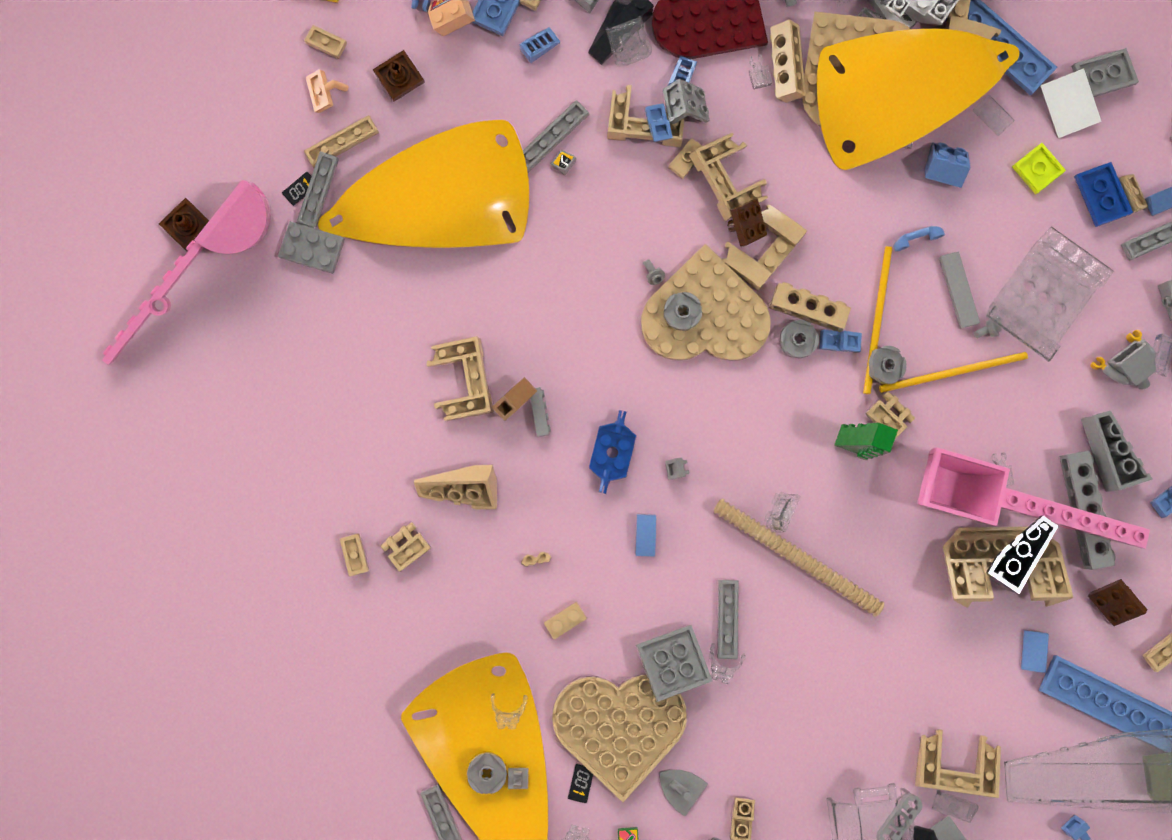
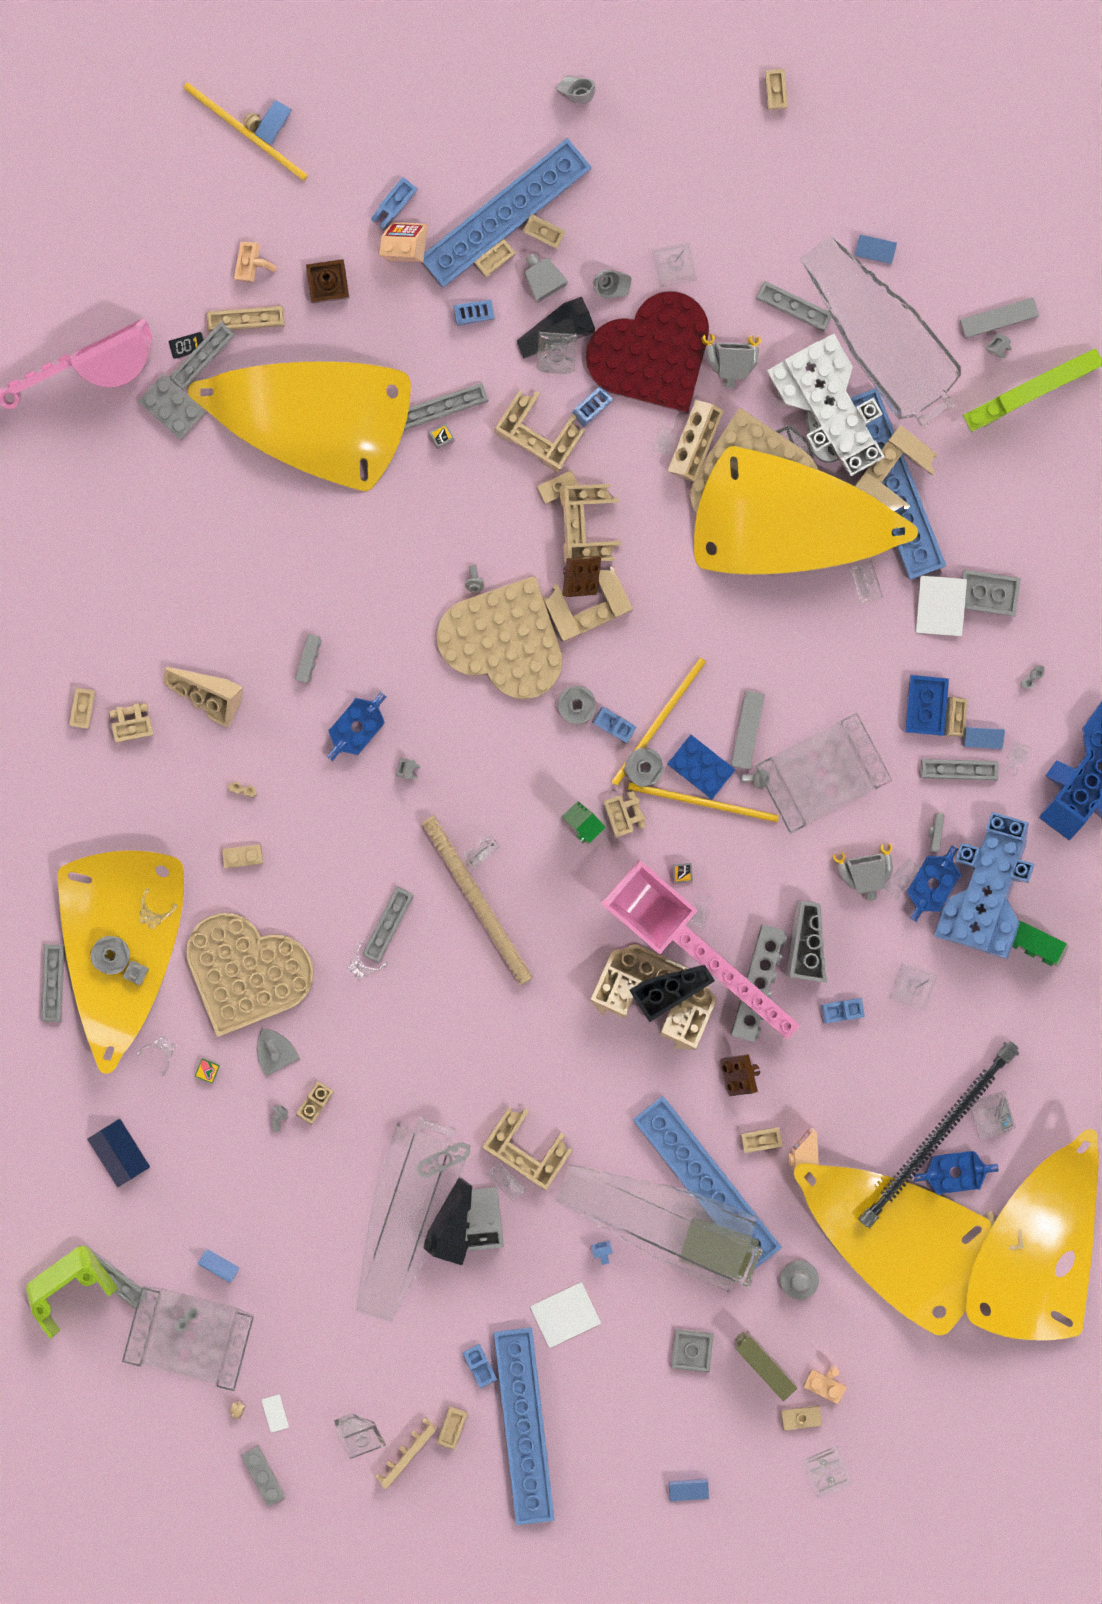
camera: 20 degrees right, 5 degrees up
(184, 223) = (67, 331): reddish brown plate -> none
(325, 42) = (275, 216): tan plate -> none
(479, 398) = (259, 621): tan wedge -> none
(514, 399) = (290, 636): medium nougat slope -> none
(580, 784) = (188, 1005): black sticker -> none
(645, 535) = (350, 815): medium blue slope -> none
(658, 122) = (544, 443): medium blue slope -> none
(674, 663) = (319, 938): light grey plate -> none
(685, 100) = (581, 434): light grey bracket -> none
(693, 309) = (484, 619): light grey plate -> none
(839, 309) = (585, 654): tan brick -> none
(933, 231) = (750, 665): medium blue bar -> none
(935, 341) = (701, 767): none -> blue plate
(947, 164) = (795, 608): medium blue slope -> none
(967, 443) = (682, 873): none -> slope
(1035, 651) = (646, 1083): medium blue slope -> none
(1038, 168) = (881, 652): neon yellow tile -> none

